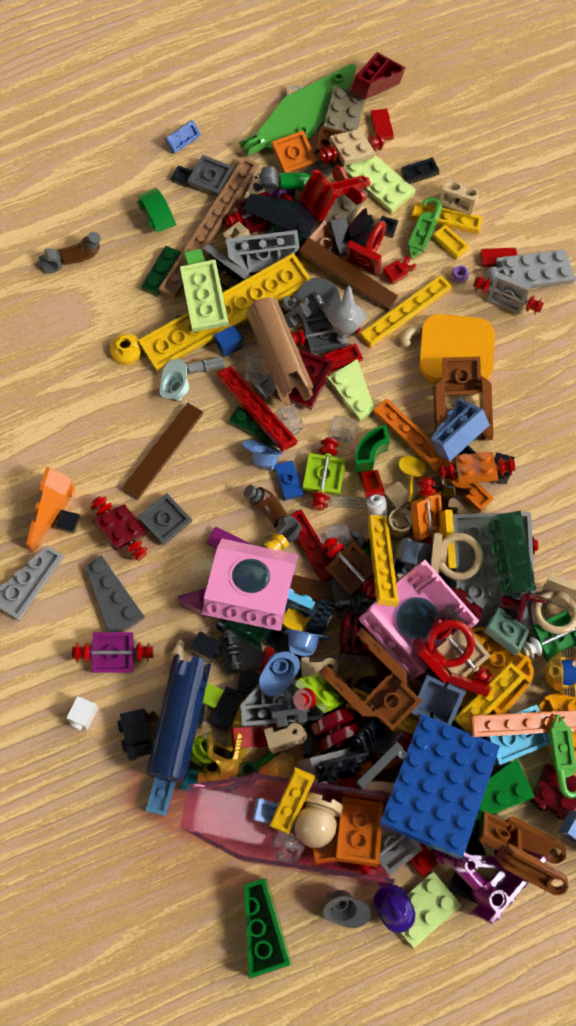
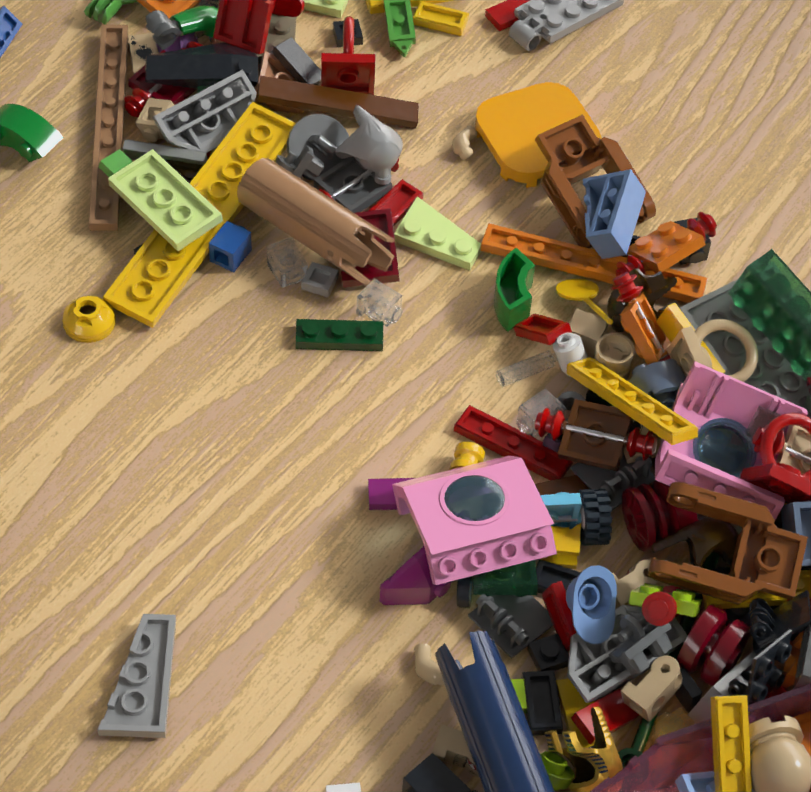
camera: 30 degrees left, 15 degrees down
(54, 497) = (114, 551): orange wedge -> none
(67, 521) = (150, 572): black tile -> none
(112, 652) = (335, 706): magenta plate -> none
(114, 601) = (294, 645): dark grey wing -> none
(119, 527) = (234, 542): dark red plate -> none
(160, 270) = (75, 204): dark green plate -> none
(162, 451) = (228, 422): reddish brown tile -> none
(165, 519) = (291, 503): dark grey plate -> none
(174, 381) = (189, 322): light aqua piece -> none
(181, 176) = (29, 81): black tile -> none
(205, 365) = (215, 290): light grey axle -> none
(206, 647) = (456, 635): black brick -> none
(210, 175) = (69, 64): dark grey plate -> none
(256, 408) = (326, 308): red tile -> none
(262, 454) = (375, 364): medium blue piece -> none
(274, 511) = (434, 421): piece -> none
(288, 480) = (427, 379): blue plate -> none
(302, 642) = (590, 553): medium blue piece -> none
(324, 474) = (470, 348): lime plate -> none
(343, 424) = (458, 284): clear brick -> none
(361, 227) = (319, 39): black slope -> none
(397, 271) = (398, 76): red plate -> none
(405, 311) = (438, 119): yellow tile -> none
(460, 269) = (479, 47): medium lavender plate -> none
(508, 293) = (559, 40): light grey plate -> none

